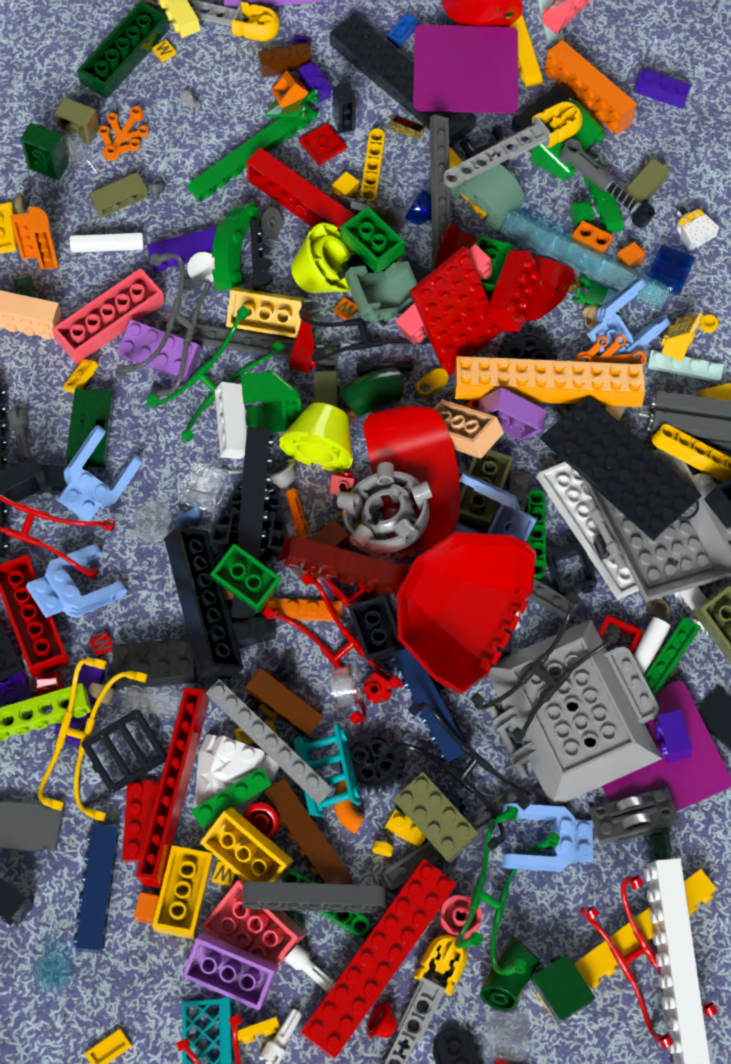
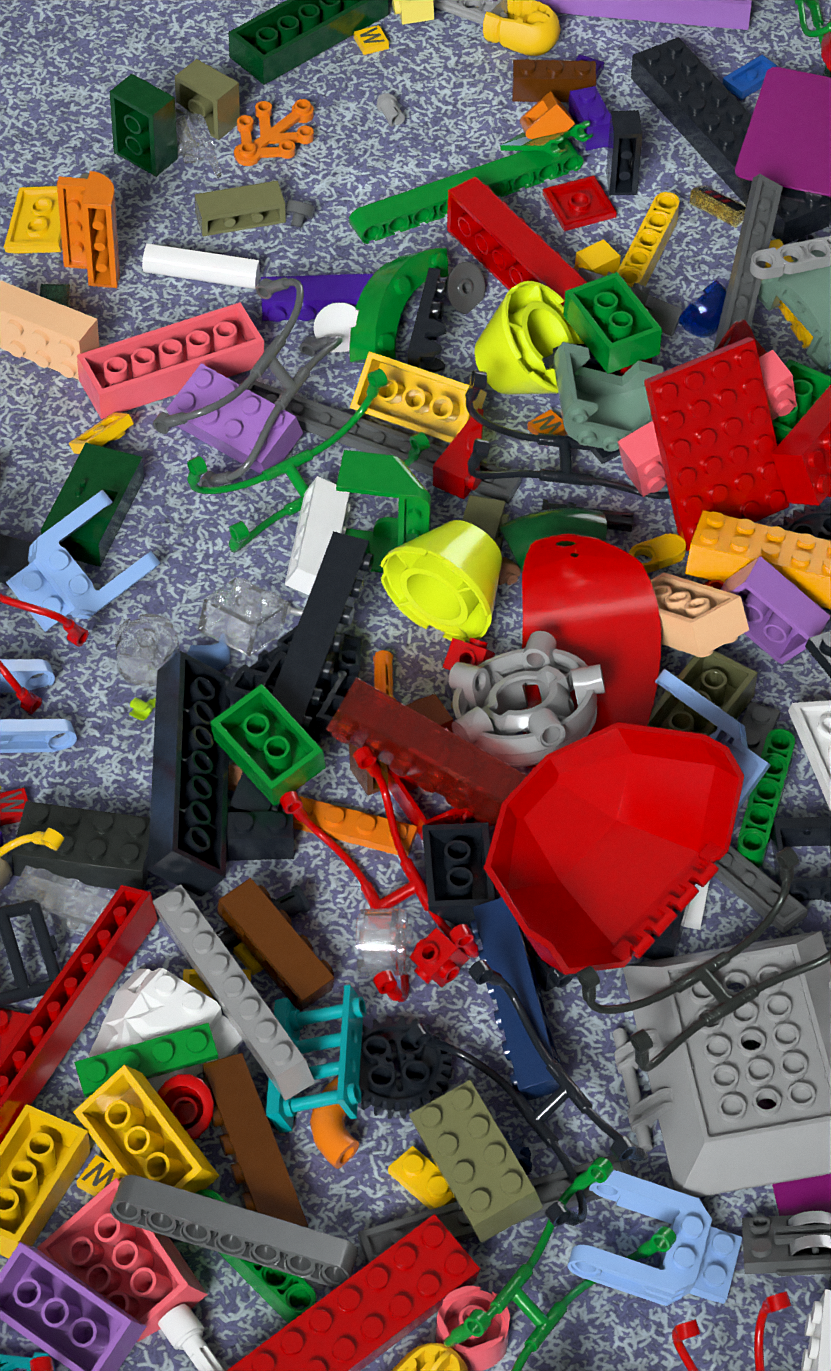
camera: 15 degrees right, 15 degrees down
(158, 561) = (141, 709): none -> lime hand
(284, 474) = (376, 629): light grey hat -> none
(382, 848) = (374, 1198): yellow tile -> none

